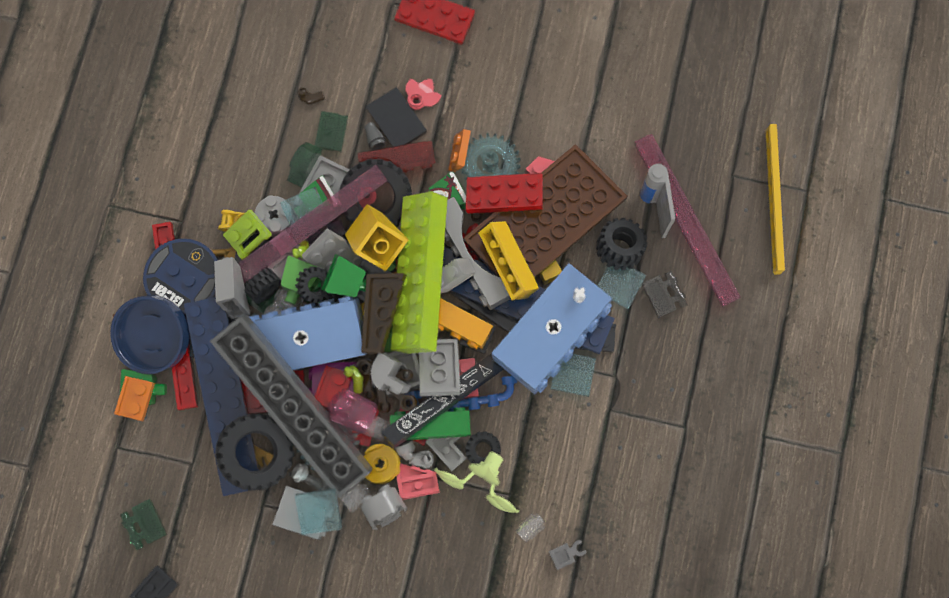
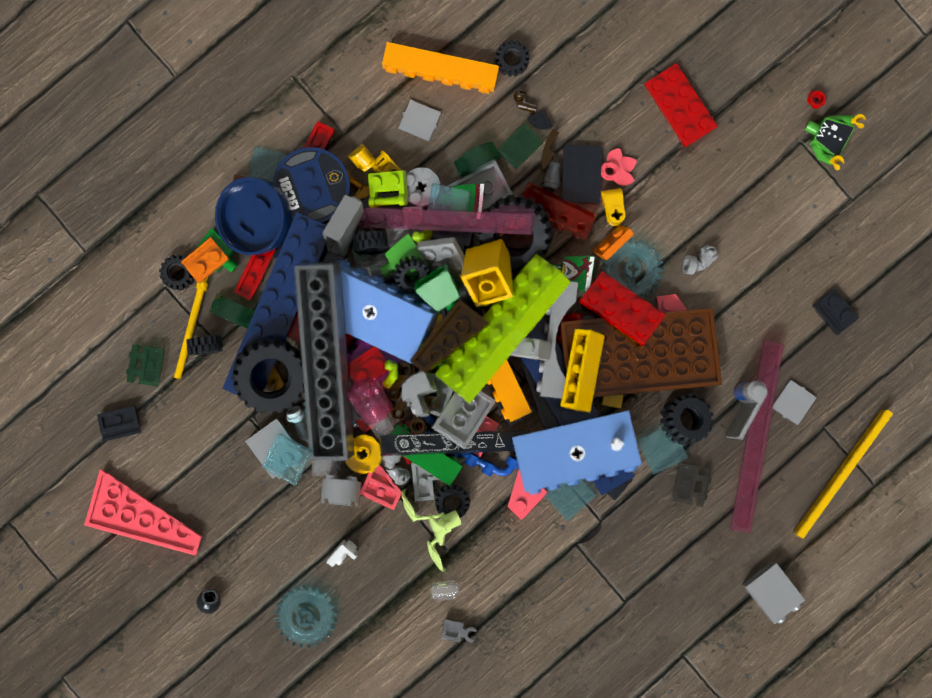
camera: 30 degrees right, 10 degrees up
(123, 438) = (166, 273): none -> black tyre
(131, 287) = (265, 163): none -> clear light blue piece
(148, 426) = (190, 327): none -> yellow bar
(182, 469) = (204, 345): none -> black tyre
(186, 425) = (231, 311): none -> clear green brick
(209, 227) = (362, 158): none -> yellow piece
(223, 116) = (440, 67): none -> light orange brick
(236, 168) = (419, 120): none -> light grey piece
(271, 61) = (512, 47): none -> black tyre
(333, 102) = (540, 121): none -> black tile
(357, 120) = (548, 154): none -> dark brown slope
(419, 560) = (341, 551): none -> white bracket
(438, 122) = (613, 203): none -> yellow piece
(534, 124) = (706, 257): none -> light grey arm
(541, 404) = (522, 502): none -> coral wing
(672, 83) = (835, 312): none -> black plate
(694, 173) = (793, 402): none -> light grey piece
(796, 331) = (774, 593): none -> light grey brick

